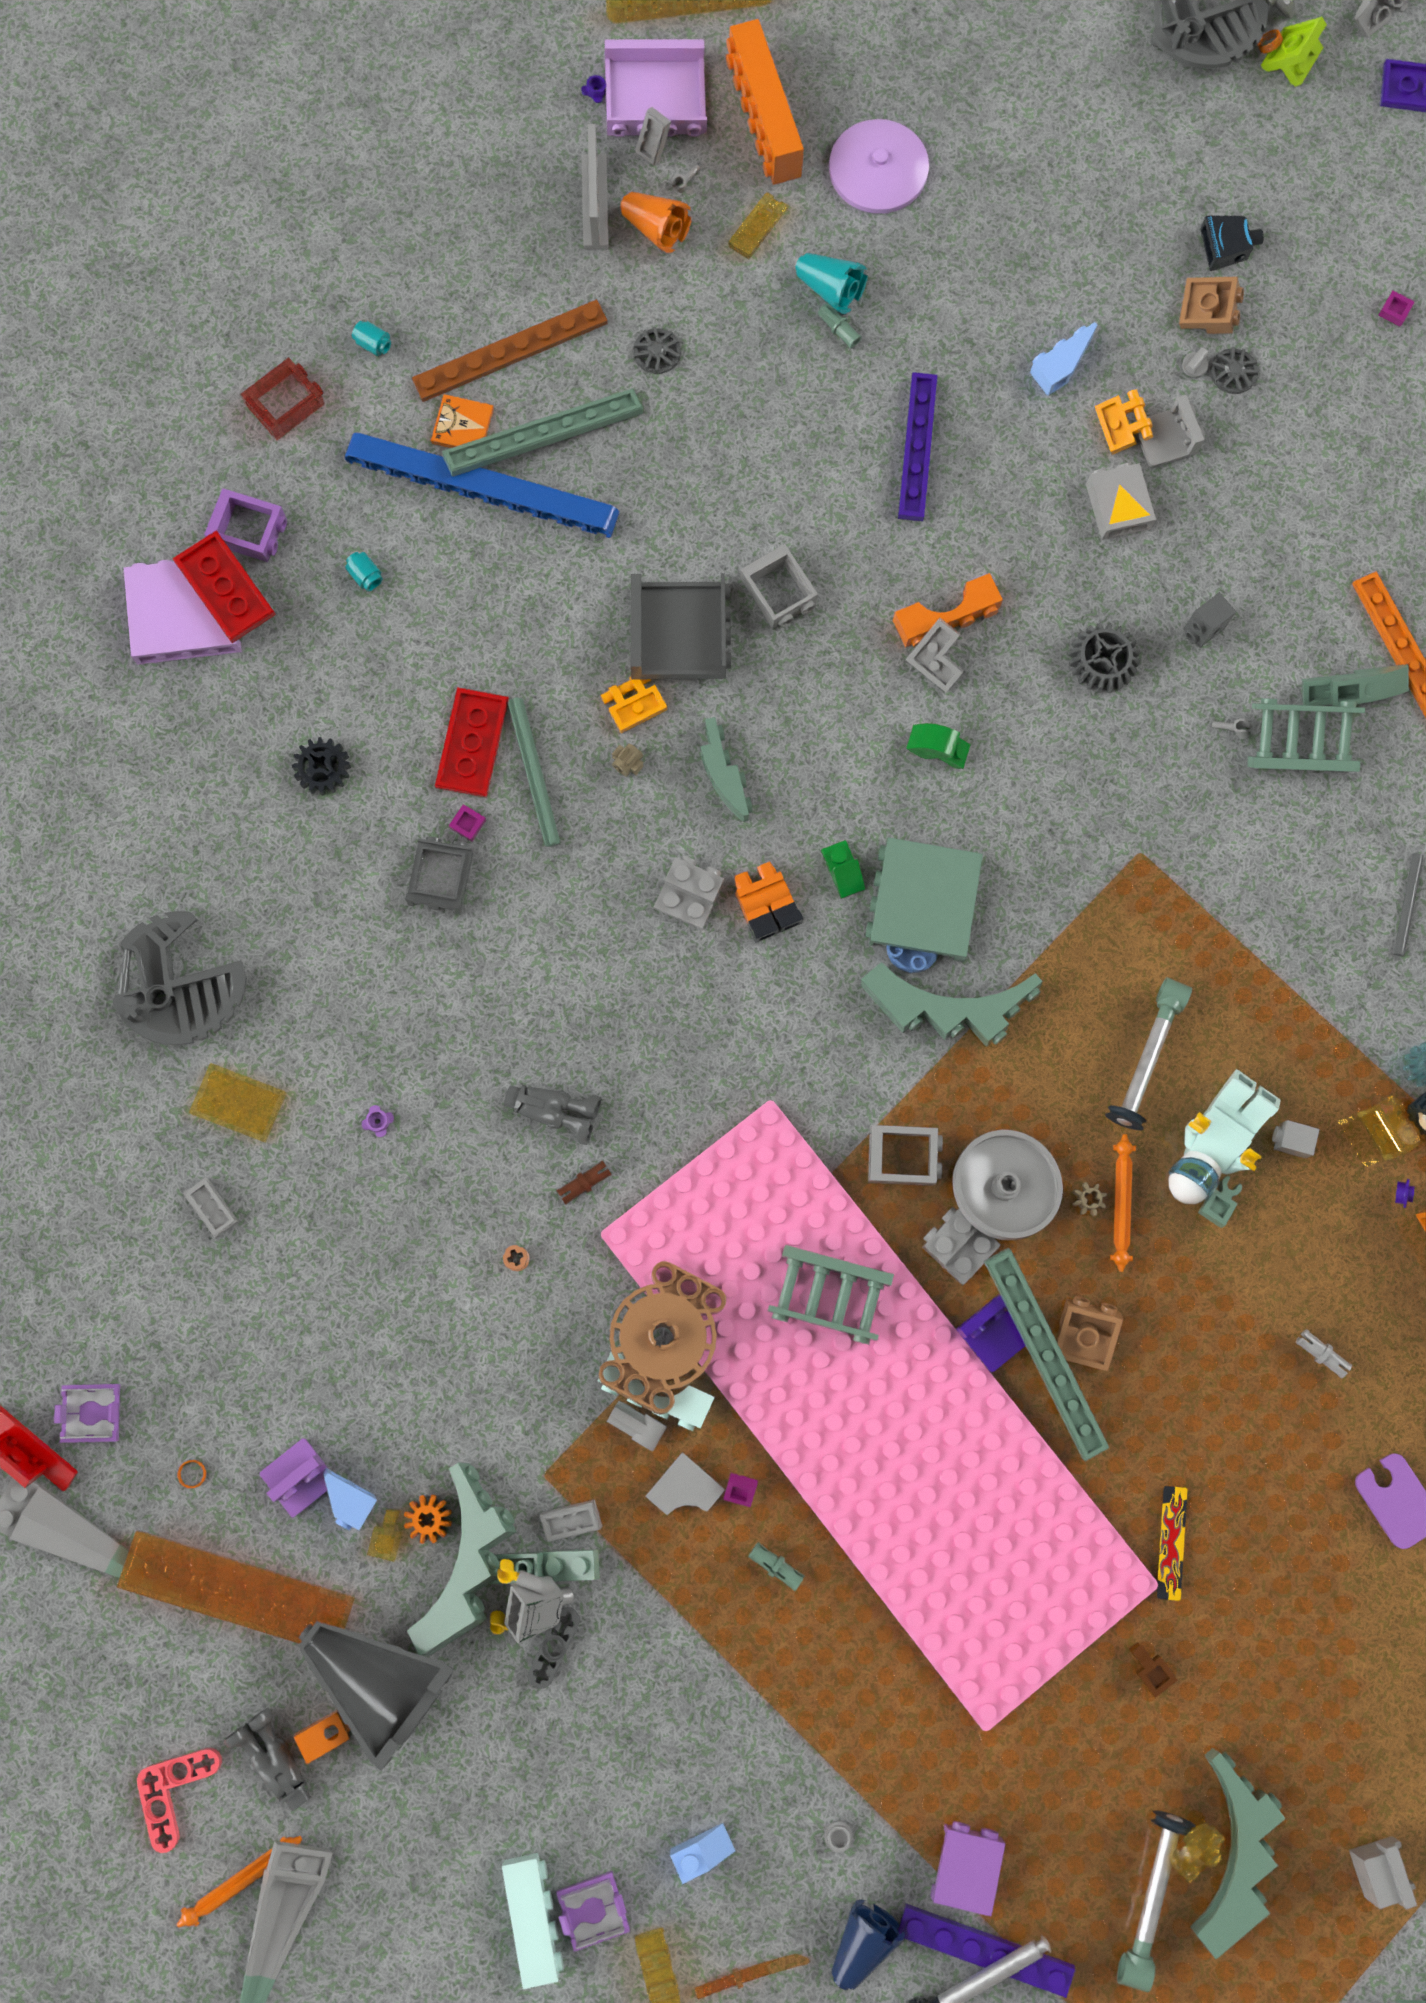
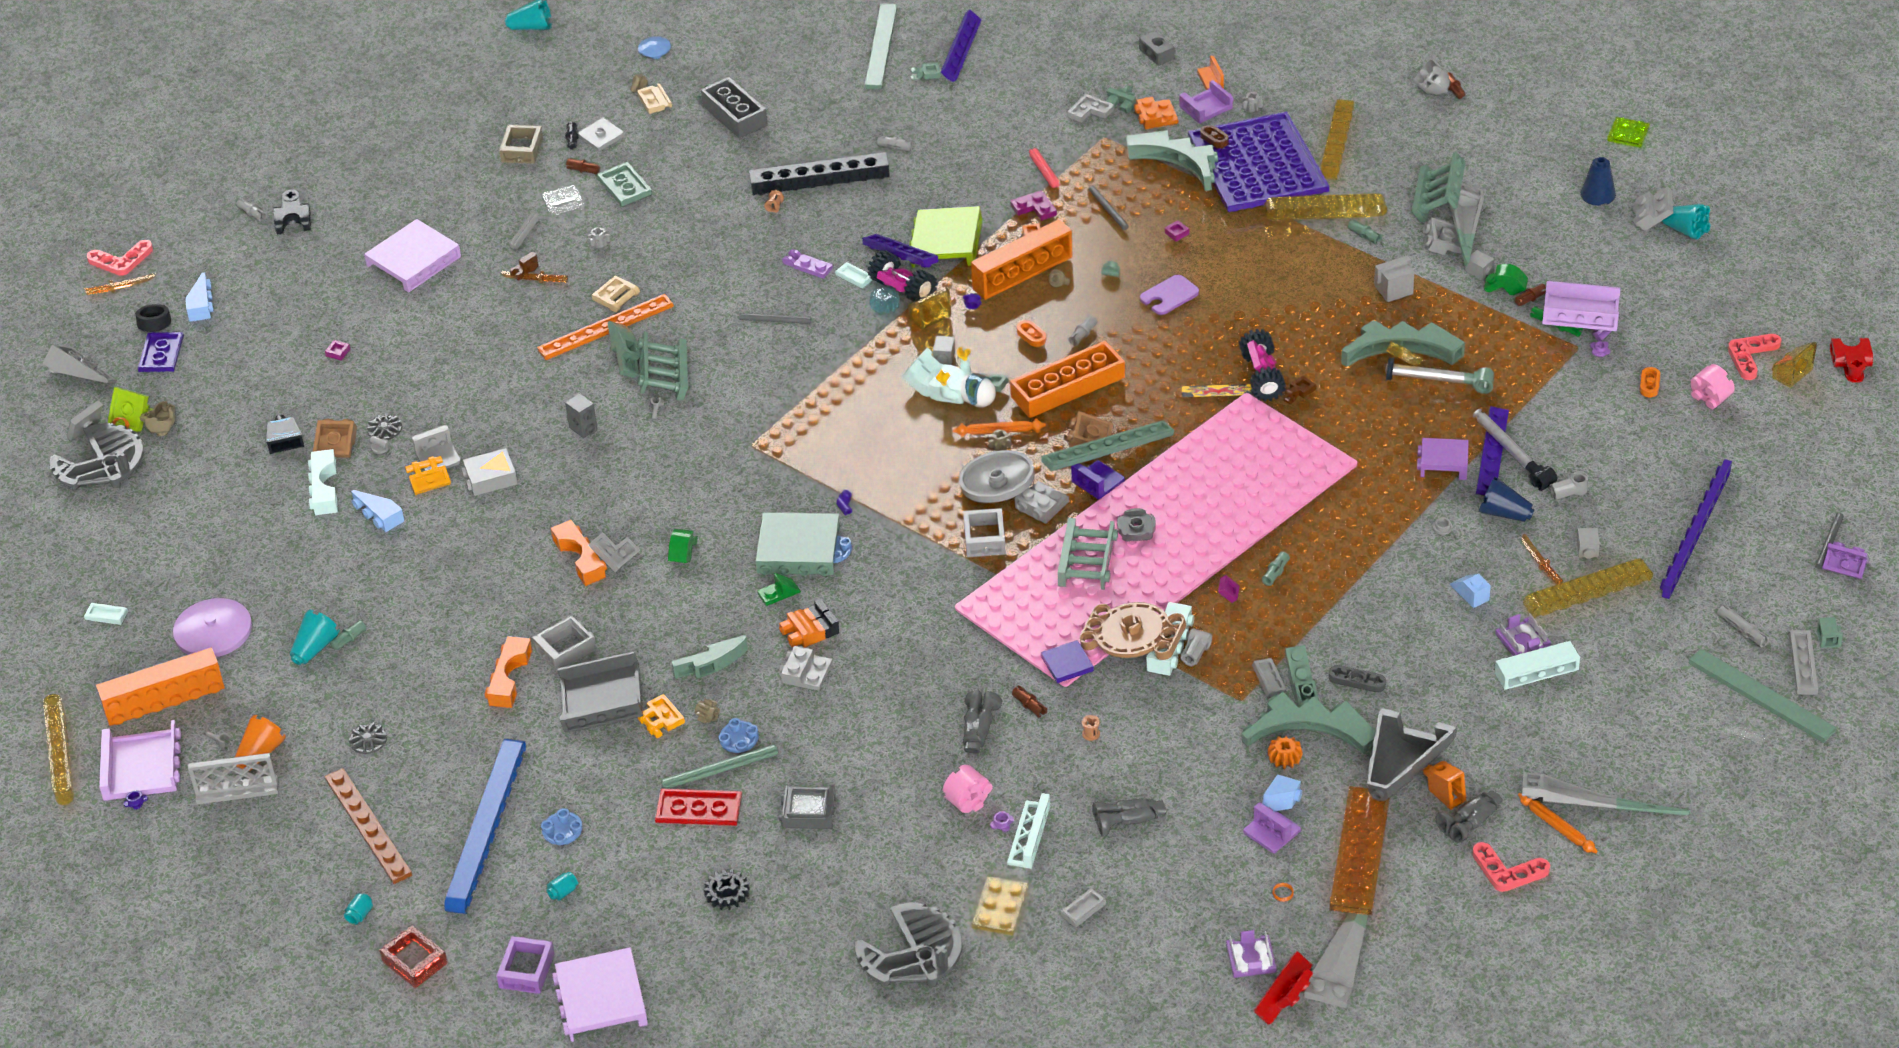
camera: 90 degrees left, 35 degrees down
(224, 586) = (583, 958): red tile -> none
(348, 1163) = (1034, 835): none -> light aqua fence
(358, 1293) = (1128, 812): none -> dark grey piece
(385, 1539) = (1307, 775): clear yellow plate -> none
(421, 1079) = (967, 789): none -> bright pink brick
(461, 421) = (432, 846): orange tile -> none
(463, 575) = (562, 827): none -> medium blue dish
(467, 823) = (764, 798): magenta plate -> none
(532, 1604) = (1331, 679): light grey torso -> none
(542, 432) = (442, 790): sand green tile -> none
(582, 798) = (738, 736): none -> medium blue dish
(630, 1239) = (1067, 661): none -> tile
(653, 136) = (186, 748): light grey plate -> none
(685, 1485) = (1232, 620): light grey tile -> none
(709, 507) = (514, 654): none -> arch
(757, 225) = (262, 689): clear yellow plate -> none
(893, 1363) = (1129, 532): none -> plate
(917, 446) = (447, 582): dark purple plate -> none
(923, 42) = (106, 613): none -> light aqua tile
(947, 1015) = (878, 540): sand green arch -> none
(1006, 969) = (843, 502): none -> dark purple arm
(1111, 676) = (609, 470): dark grey gear -> none
(1157, 289) = (323, 497): none -> light aqua arch
(1171, 1000) = (857, 413): piece -> none
(1202, 1620) = (1268, 380): none -> black plate
(1206, 1315) = (1067, 379): none -> orange brick
(1274, 86) = (160, 418): none -> dark tan piece
(1321, 1275) = (1031, 333): none -> orange plate

